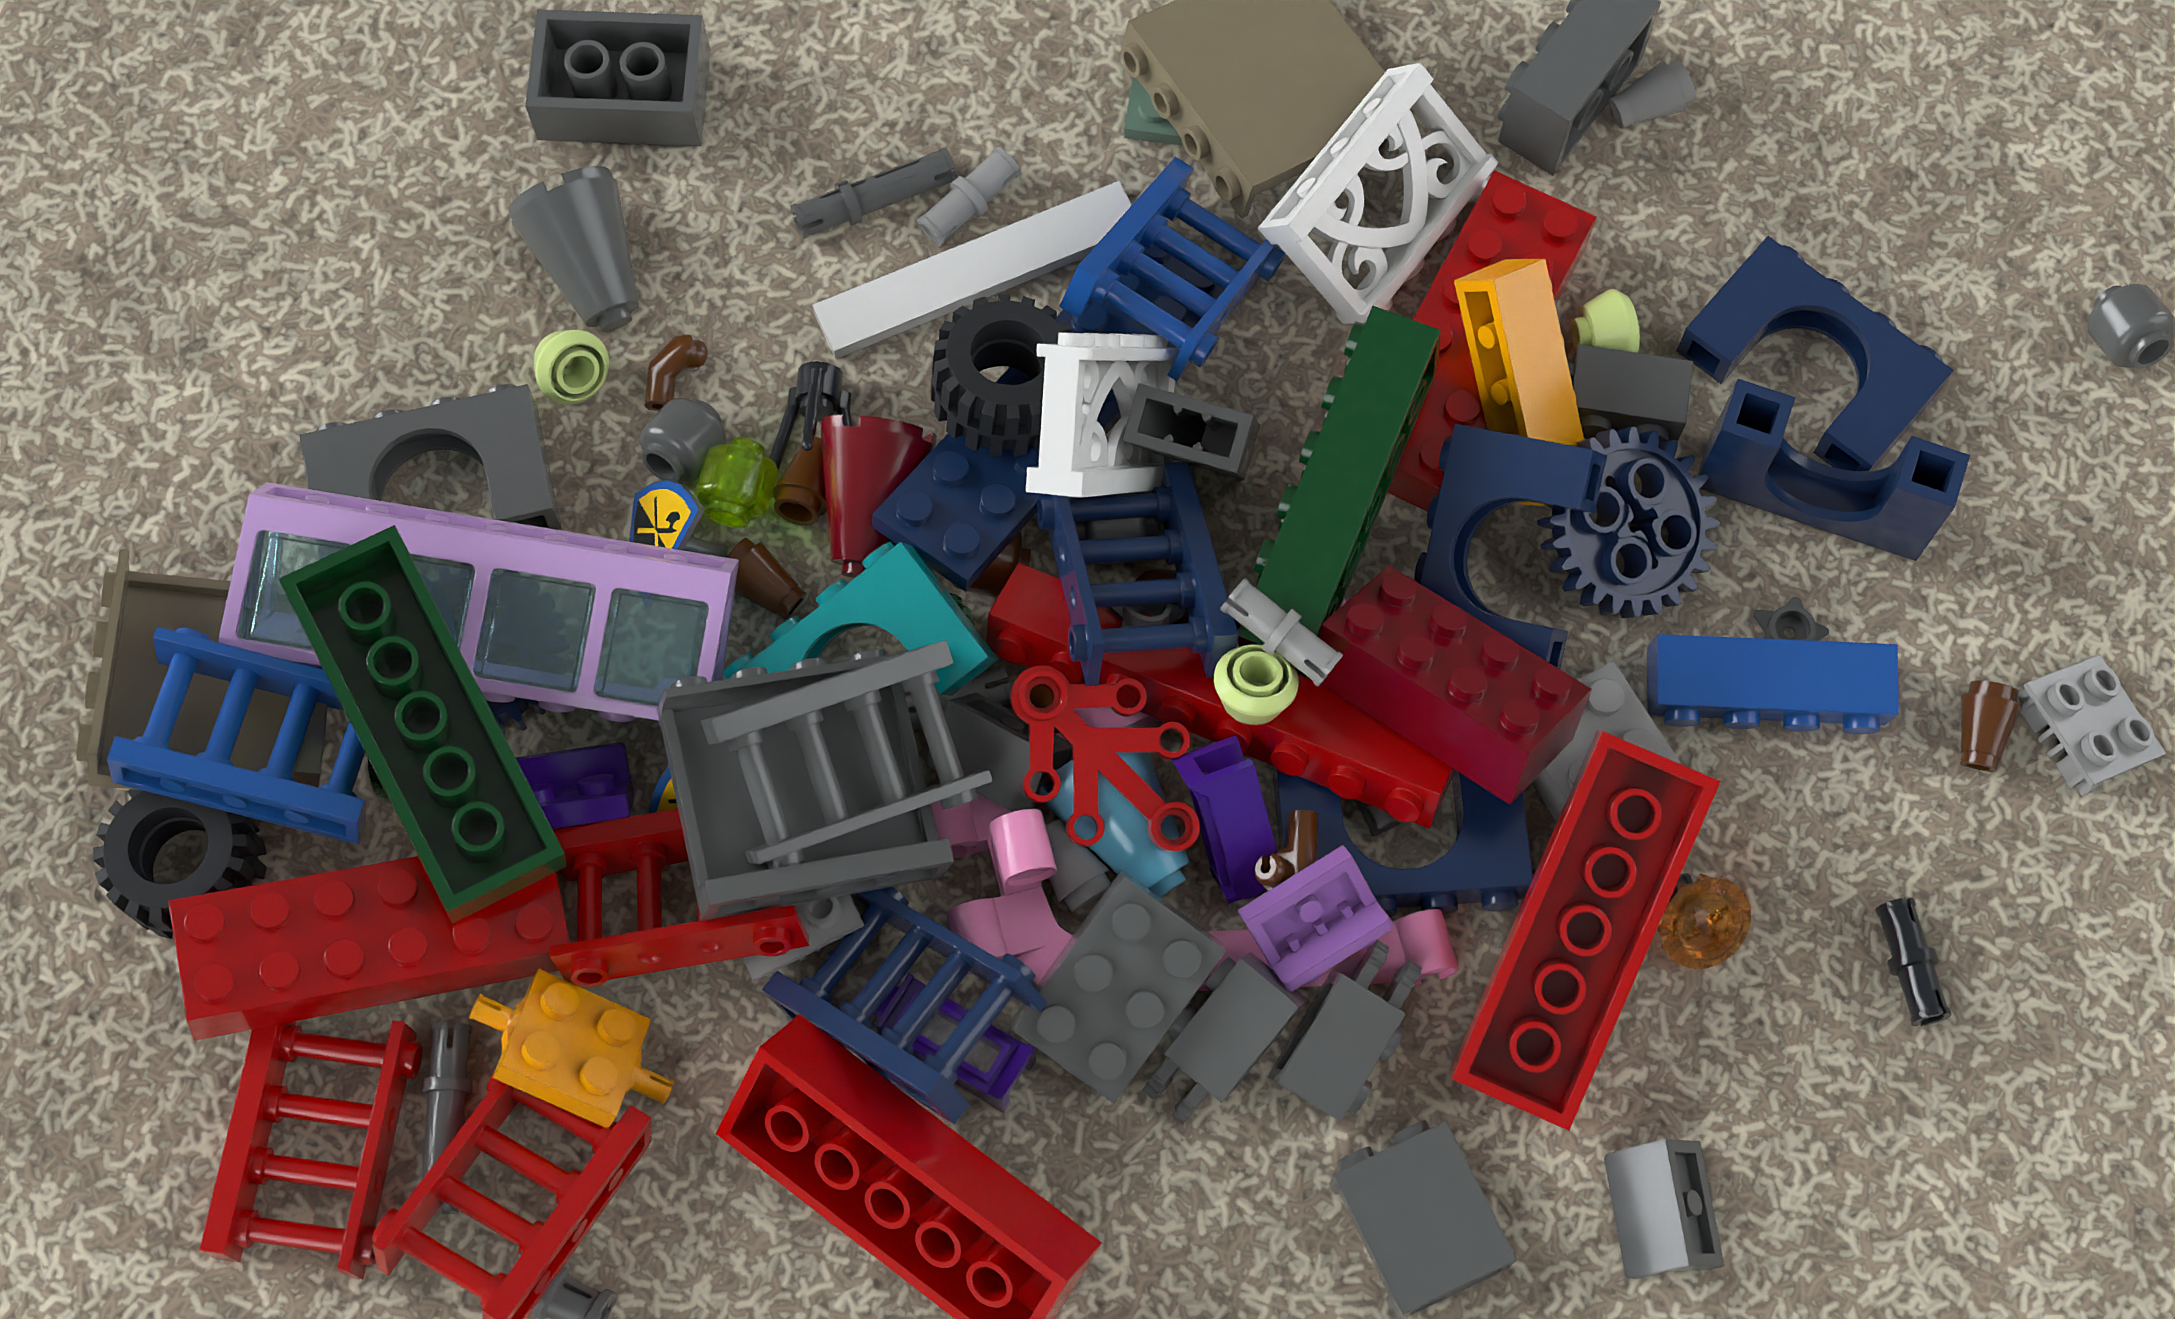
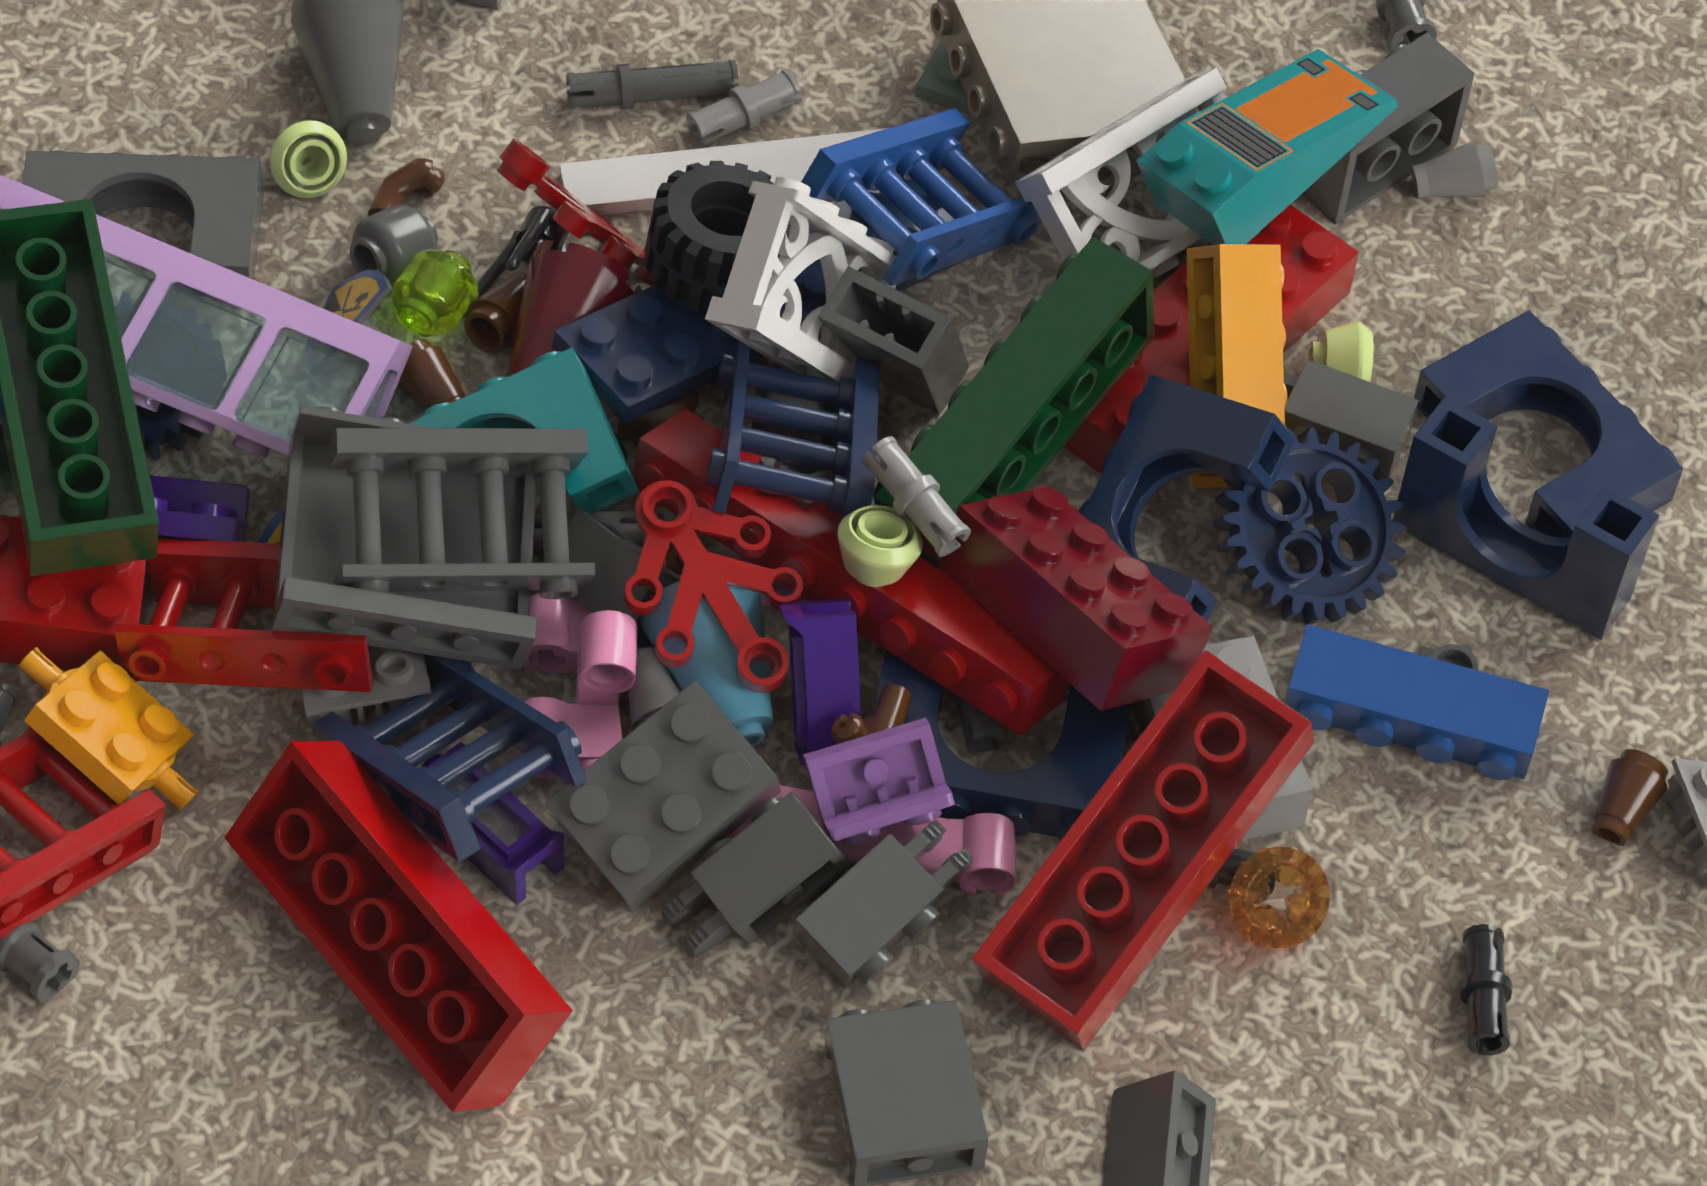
camera: 10 degrees right, 15 degrees down
(865, 371) = (525, 167): none -> red plant
(1489, 137) = (1261, 147): none -> teal slope

